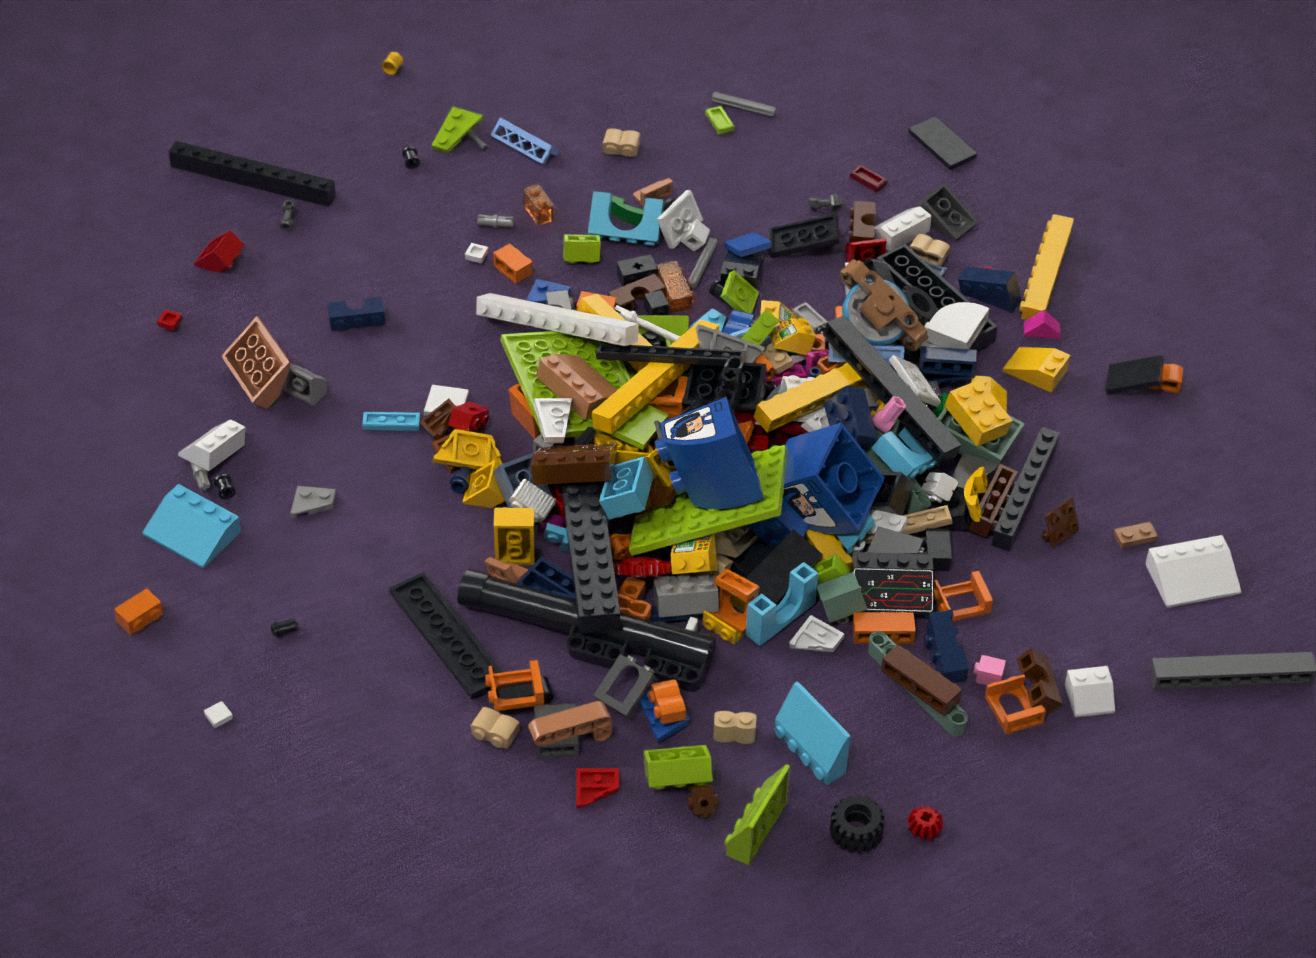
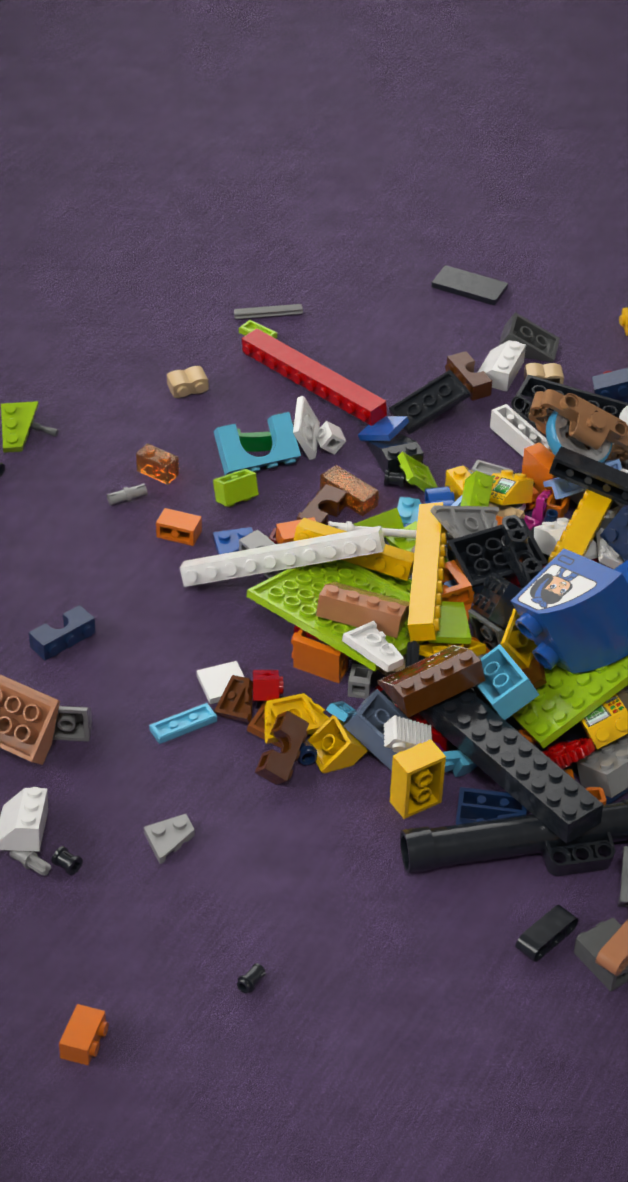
camera: 30 degrees left, 5 degrees down
(192, 526) = (66, 917): medium azure slope -> none
(218, 714) = (257, 1104): white tile -> none
(425, 482) = (291, 733): none -> reddish brown arch
(445, 633) = (423, 908): black plate -> none
(476, 253) = (133, 530): white plate -> none
(494, 727) = (552, 979): tan brick -> none
(497, 458) = (341, 710): none -> medium azure tile
(505, 571) = (429, 817): nougat panel -> none
(513, 677) = (559, 909): orange panel -> none
(527, 137) = (93, 407): light blue fence -> none
(635, 269) = (302, 489): black brick -> none
(656, 191) = (254, 415): nougat panel -> none
(656, 303) = (348, 510): black brick -> none
(667, 354) = (427, 544): black tile -> none
(702, 262) = (353, 458): light grey axle -> none
(726, 177) = (314, 377): none -> brick
(834, 202) = (422, 365): dark grey bar -> none
(864, 249) = (494, 397): red slope -> none
(868, 178) = (433, 336): dark red tile -> none

